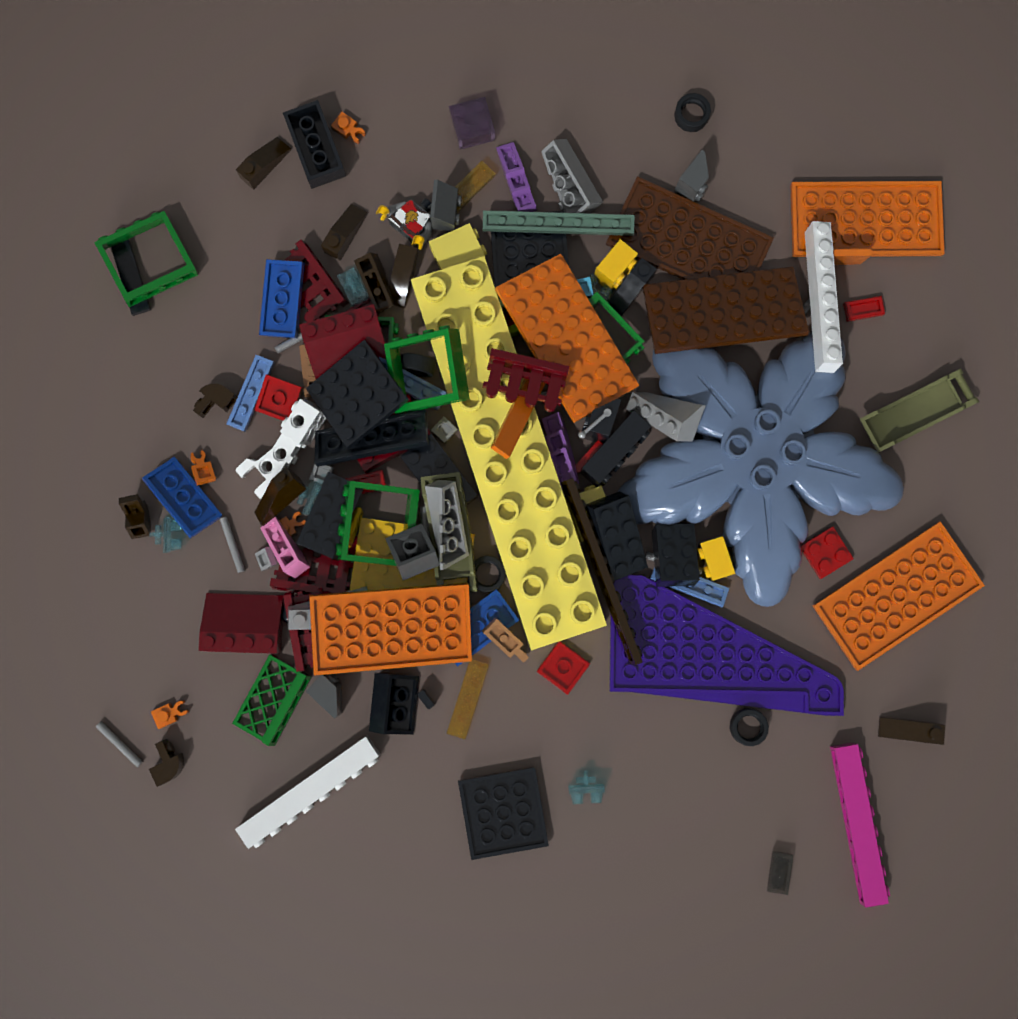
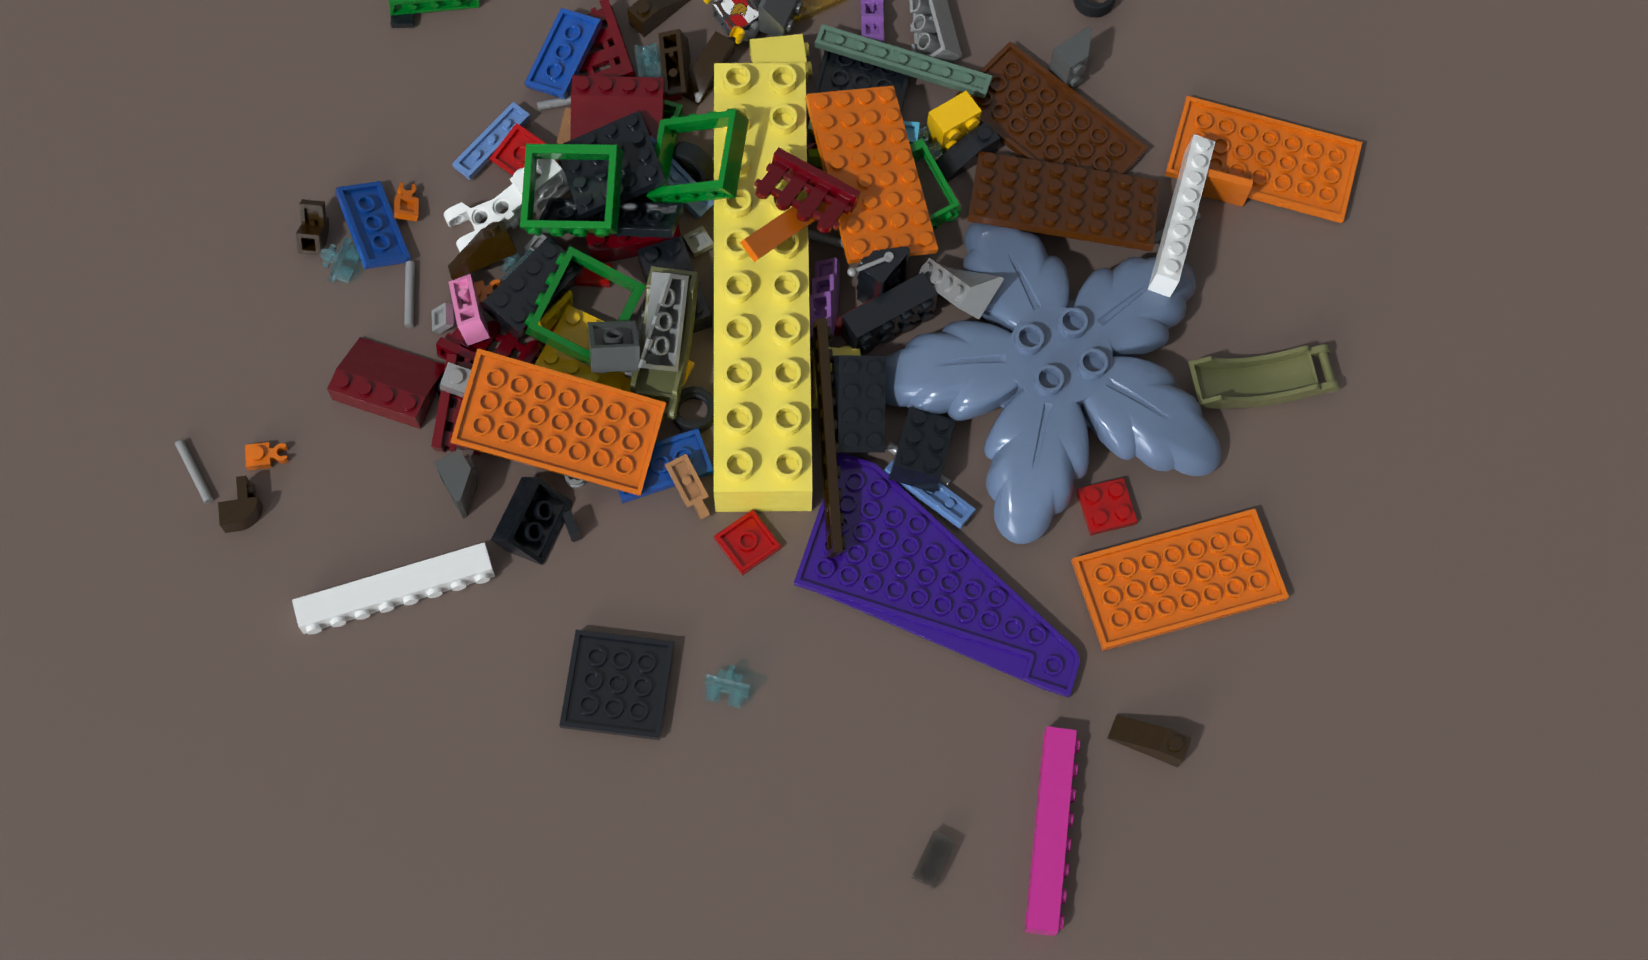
camera: 15 degrees right, 15 degrees down
(216, 395) = (449, 130): dark brown brick -> none
(283, 711) = (401, 487): green fence -> none
(369, 423) = (572, 152): none -> green window
(467, 699) = (621, 543): clear yellow plate -> none
(716, 559) = (968, 467): yellow piece -> none
(764, 727) = (954, 656): black tyre -> none
(864, 308) = (1232, 253): red tile -> none

